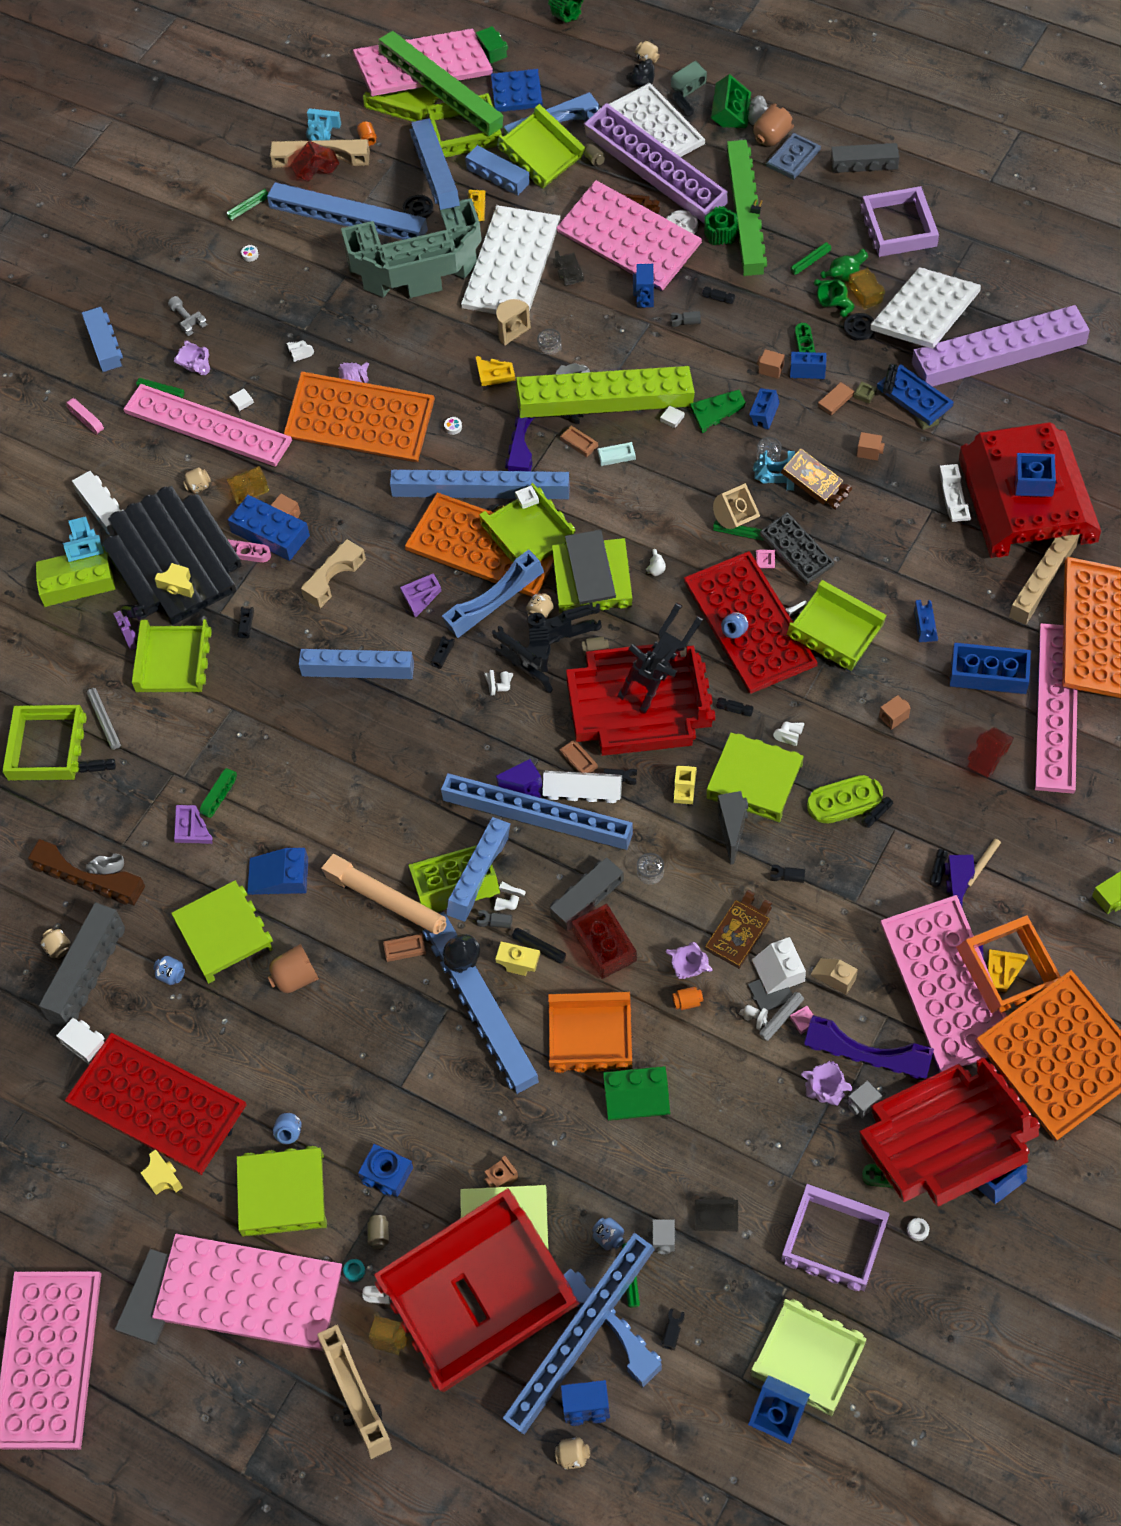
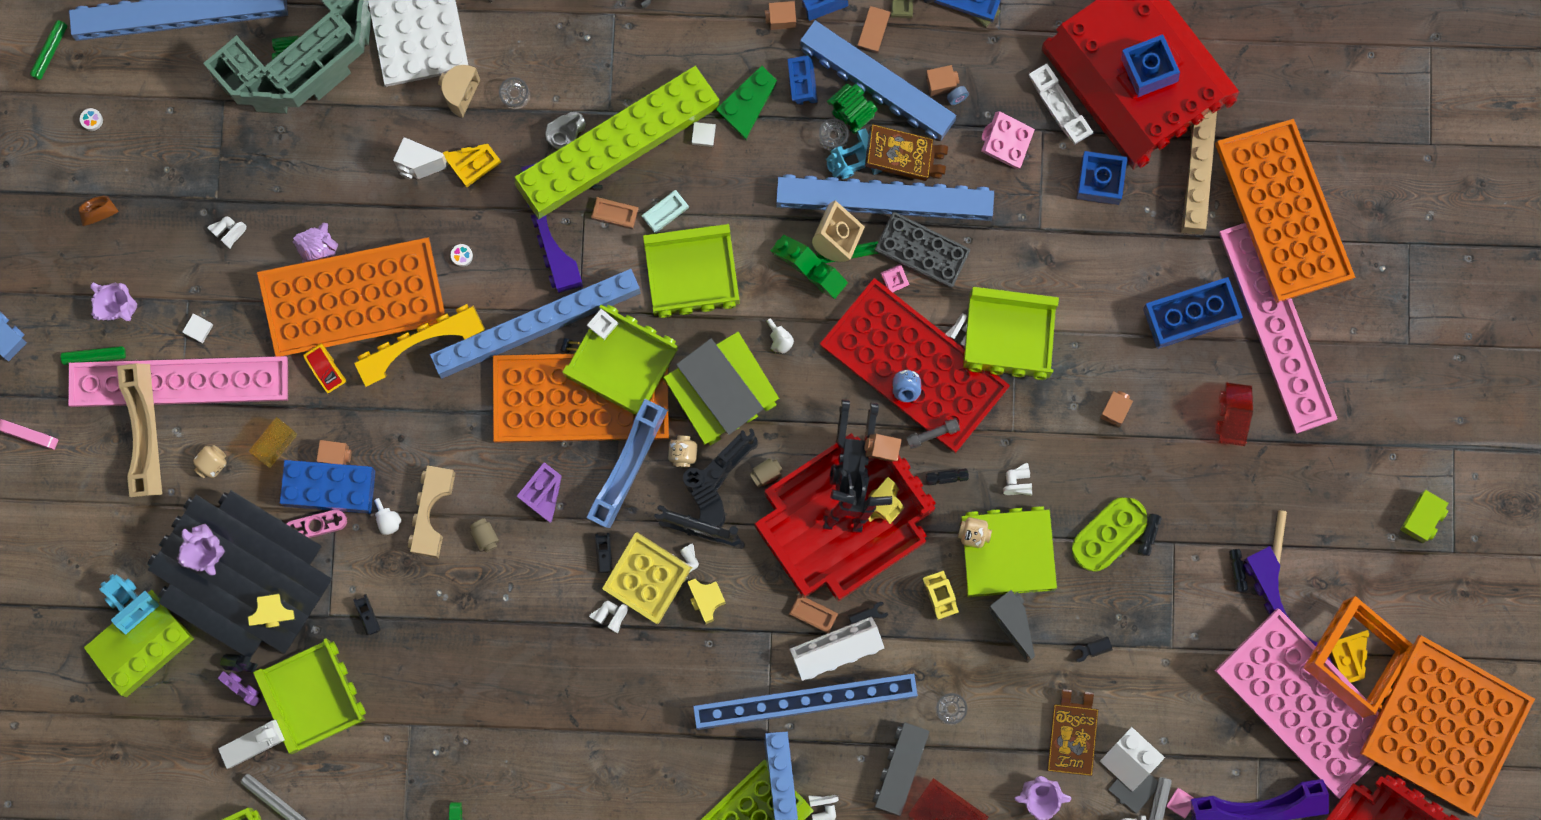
camera: 30 degrees left, 20 degrees up
(96, 499) = (113, 540): white brick -> none
(109, 667) = (251, 744): none -> white hinge
(151, 516) = (200, 549): none -> lavender hair
(175, 409) = (144, 471): none -> tan arch
(176, 305) = (44, 232): light grey bar -> none
(218, 304) = (96, 210): none -> dark orange piece
(298, 567) = (387, 520): none -> white piece
(313, 455) = (324, 368): none -> slope
(349, 465) = (464, 323): none -> yellow arch
(356, 663) = (519, 613): medium blue brick -> none
(361, 603) = (484, 535): none -> dark tan brick
(424, 695) = (609, 607): none -> white piece
(456, 351) = (418, 160): none -> white slope
(464, 677) = (647, 578): none -> light yellow plate
(501, 712) = (706, 598): none -> light yellow brick
(522, 779) = (775, 677): dark purple slope -> none
(615, 495) = (691, 270): none -> lime panel
(673, 697) = (887, 512): none -> light yellow brick
(690, 647) = (882, 447): none -> nougat brick
(701, 517) = (805, 261): none -> green arch
(722, 669) = (950, 427): none -> flat silver bar
(733, 742) = (974, 532): none -> tan head
(779, 501) = (886, 198): none -> medium blue brick
(792, 433) = (852, 107): none -> green brick
(821, 429) = (877, 81): none -> medium blue brick
(835, 974) = (1189, 740): tan slope -> none
(877, 460) = (957, 95): none -> sand blue tile
(901, 501) = (1006, 140): none -> bright pink plate
(925, 622) = (1099, 282): blue hinge -> none
(962, 551) = (1101, 178): none -> blue brick

